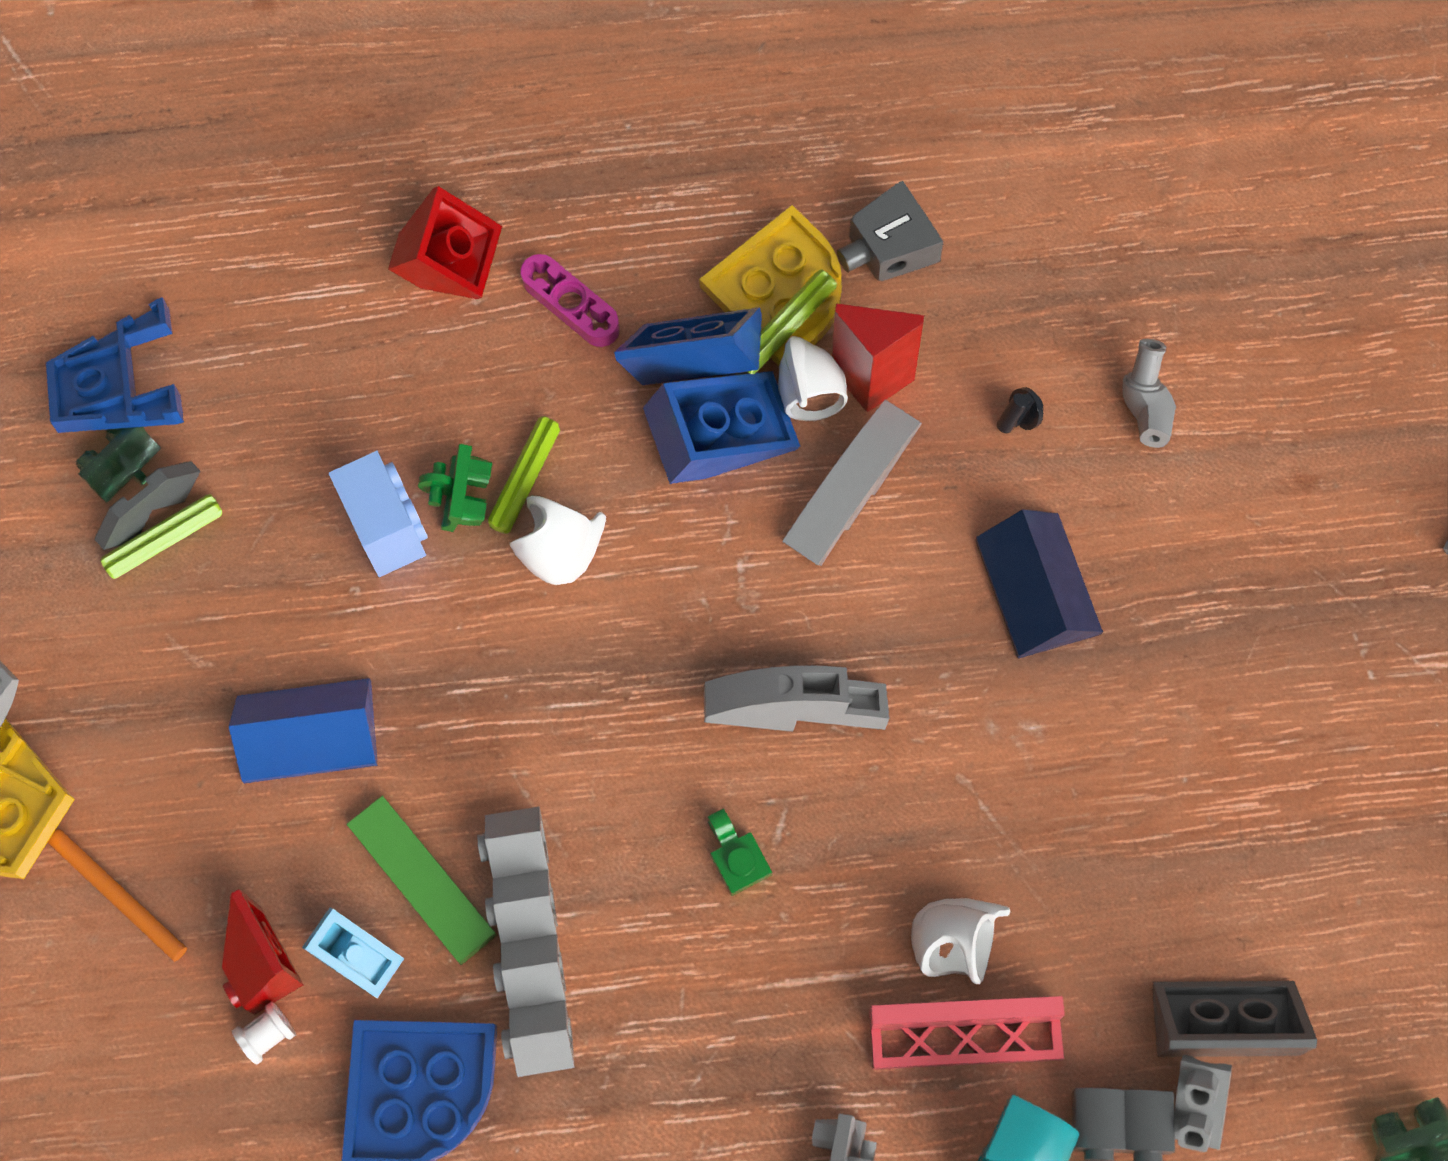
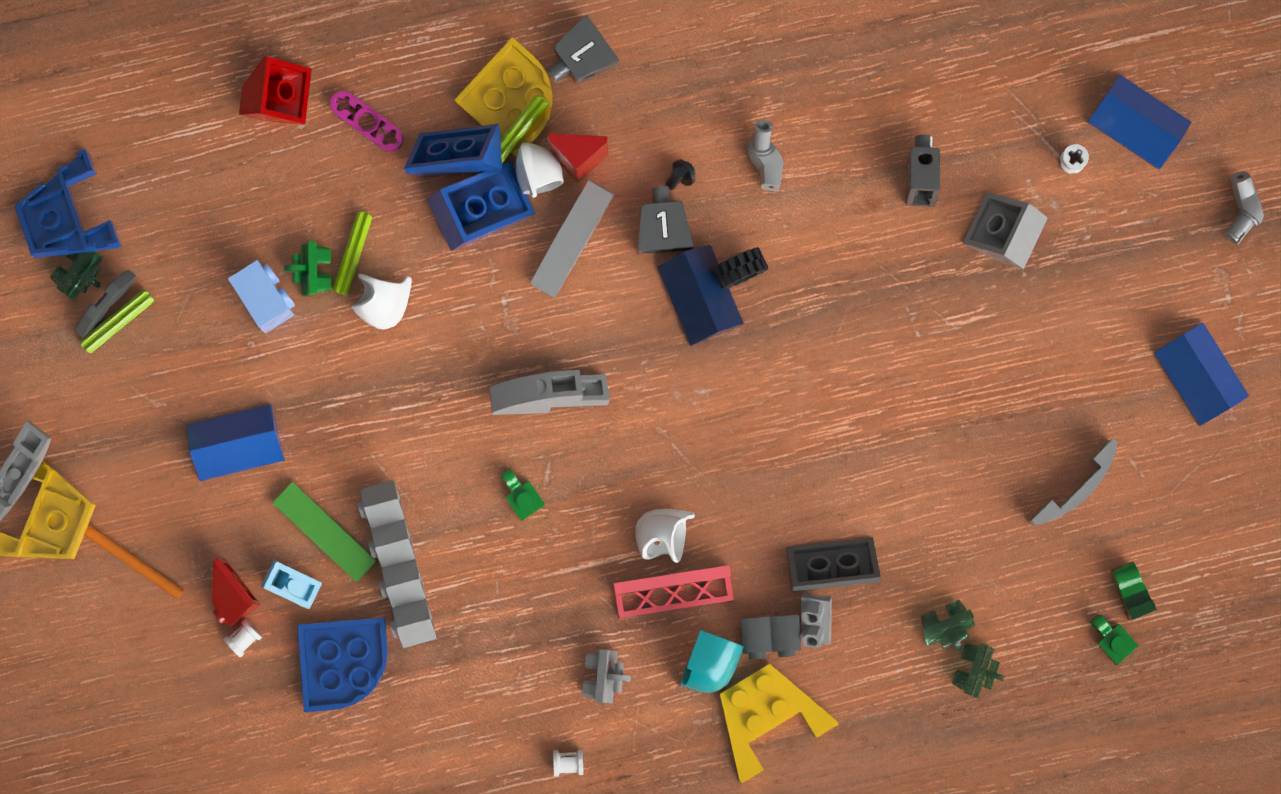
camera: 10 degrees left, 15 degrees up
(991, 477) = (663, 225): none -> dark grey torso
(1105, 544) = (740, 268): none -> black tyre
(1391, 424) = (923, 173): none -> dark grey torso

